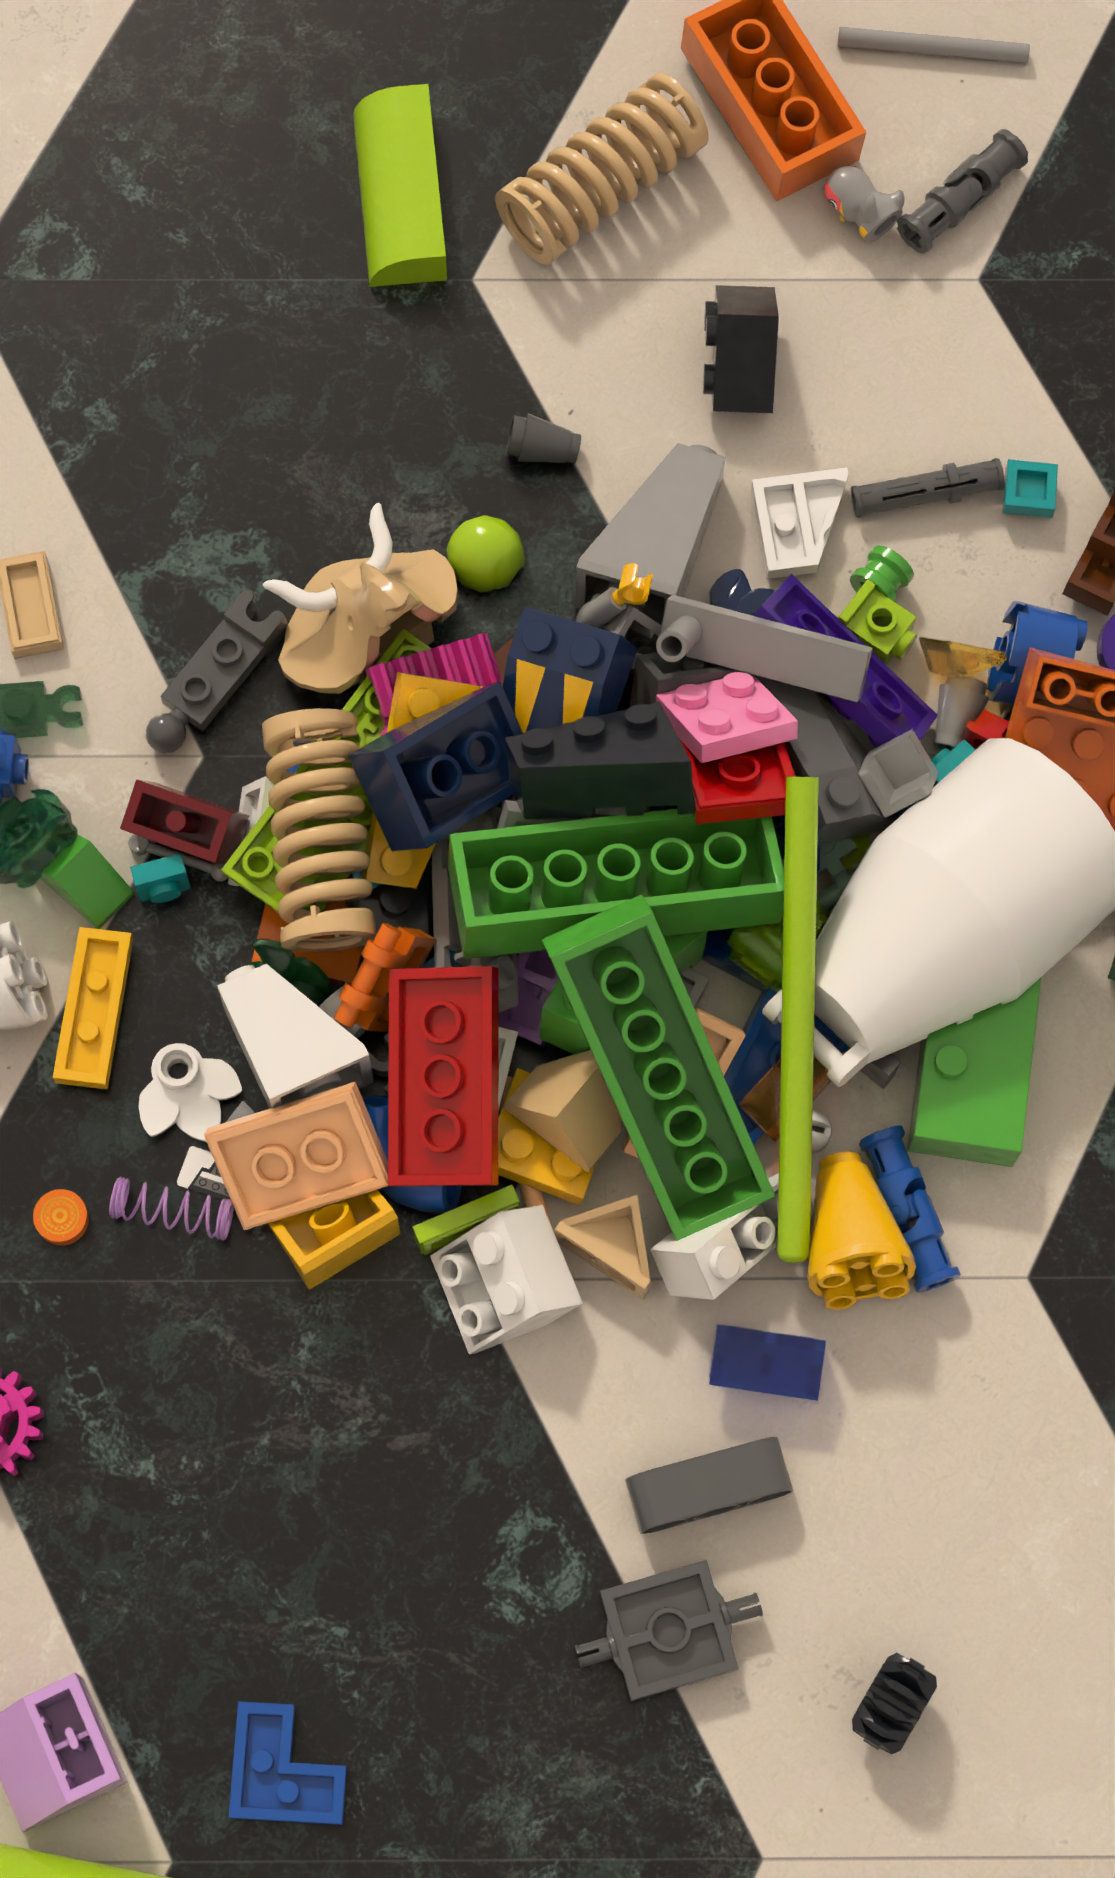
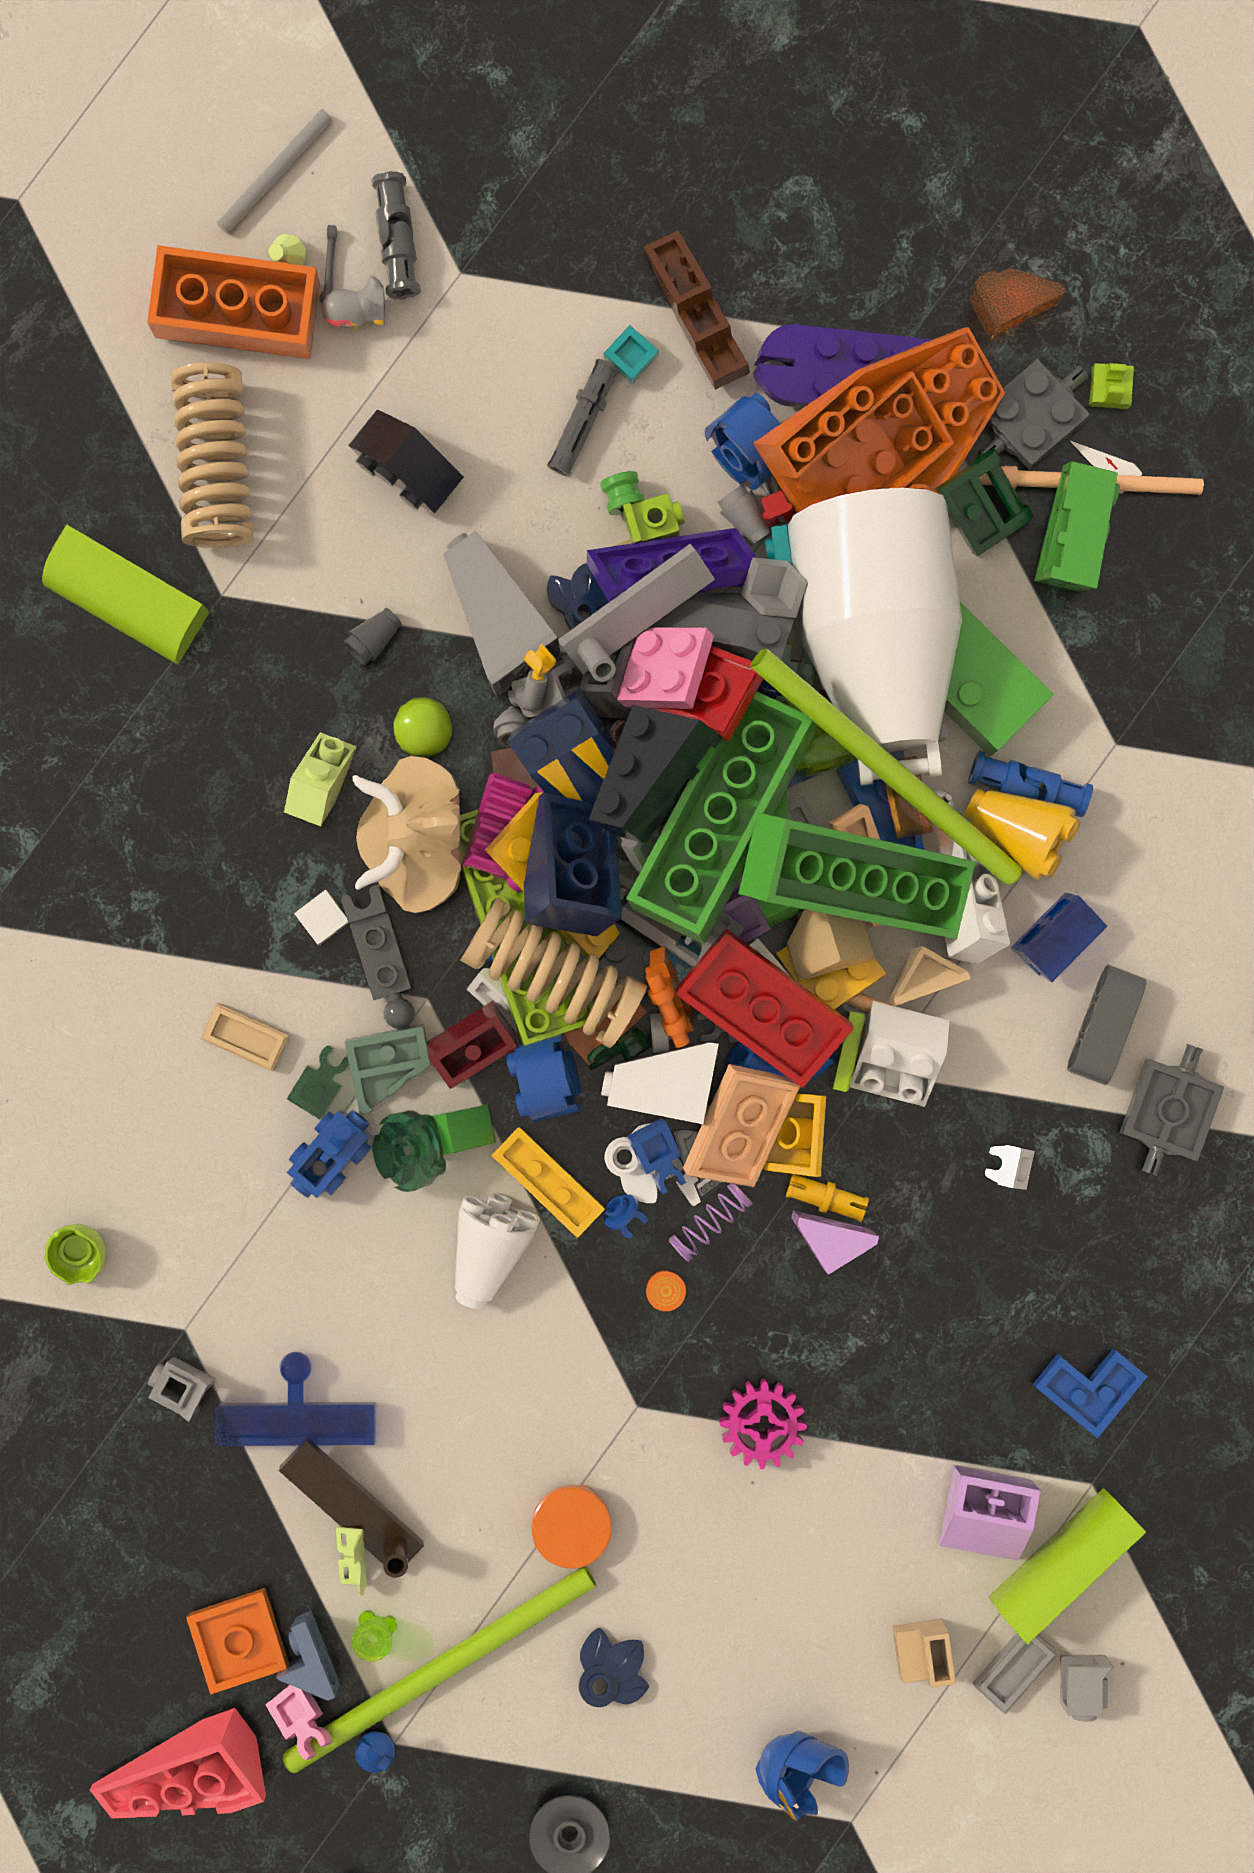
camera: 50 degrees left, 15 degrees up
(99, 755) = (385, 1062): none -> sand green wing
(116, 1105) = (621, 1212): none -> blue plate
(160, 879) = (497, 1084): teal plate -> none
(203, 920) = (545, 1079): none -> blue brick
(207, 1089) = (655, 1151): none -> blue plate
(210, 591) = (322, 917): none -> white tile
(238, 1345) = (833, 1241): none -> lavender slope
(289, 1316) = (827, 1197): none -> yellow pin
(346, 485) = (319, 779): none -> yellowish green slope
(473, 1496) = (1015, 1166): none -> white tile
(796, 518) = (543, 515): white wing -> none
(865, 103) = (288, 249): none -> yellowish green rock
(914, 137) = (331, 237): none -> dark grey hinge
(958, 659) = (716, 487): clear yellow slope -> none

